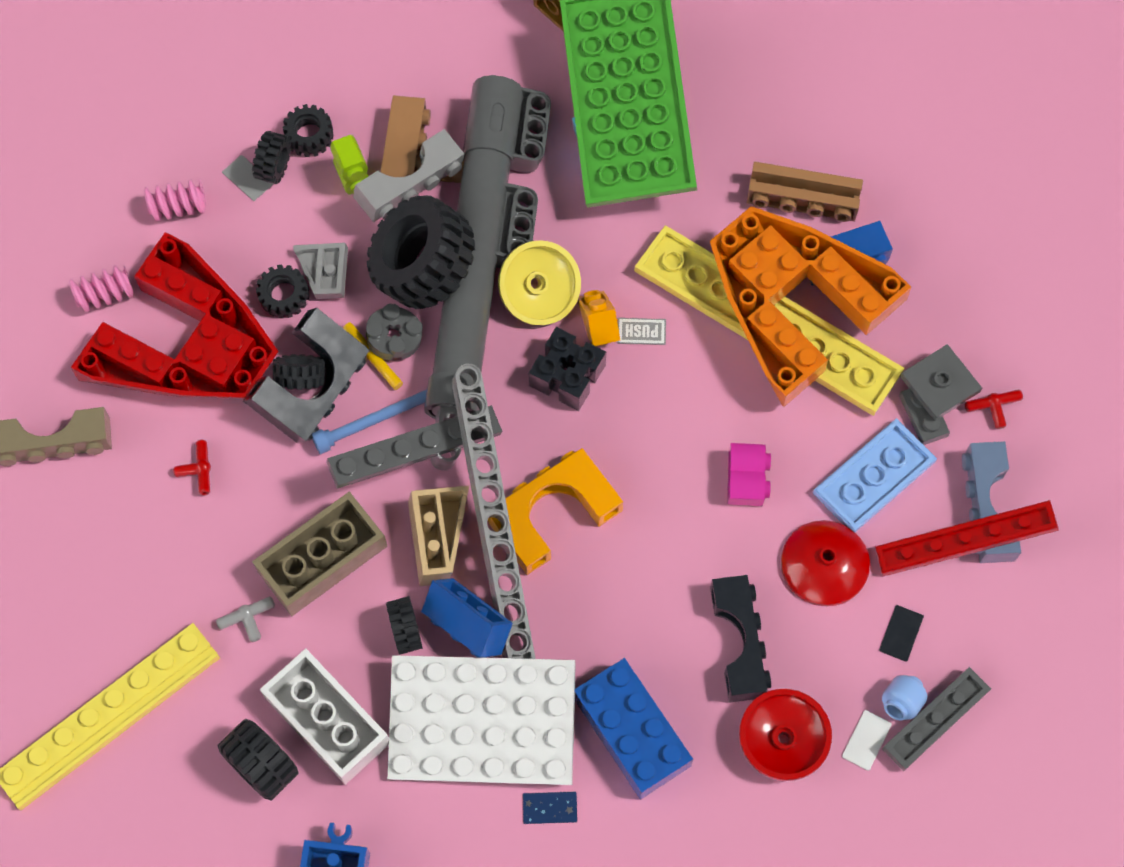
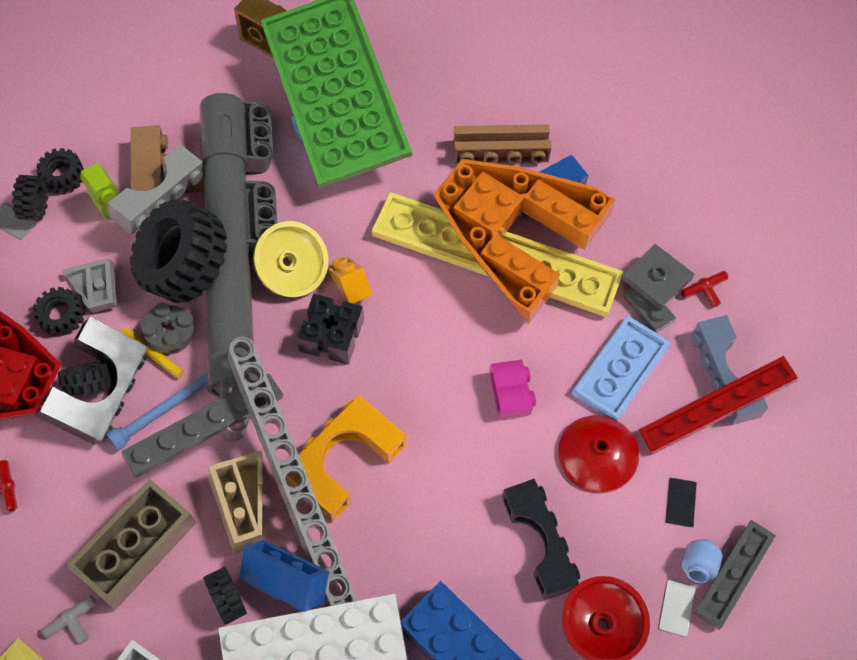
camera: 15 degrees left, 5 degrees down
(642, 331) = (390, 285): sticker -> none

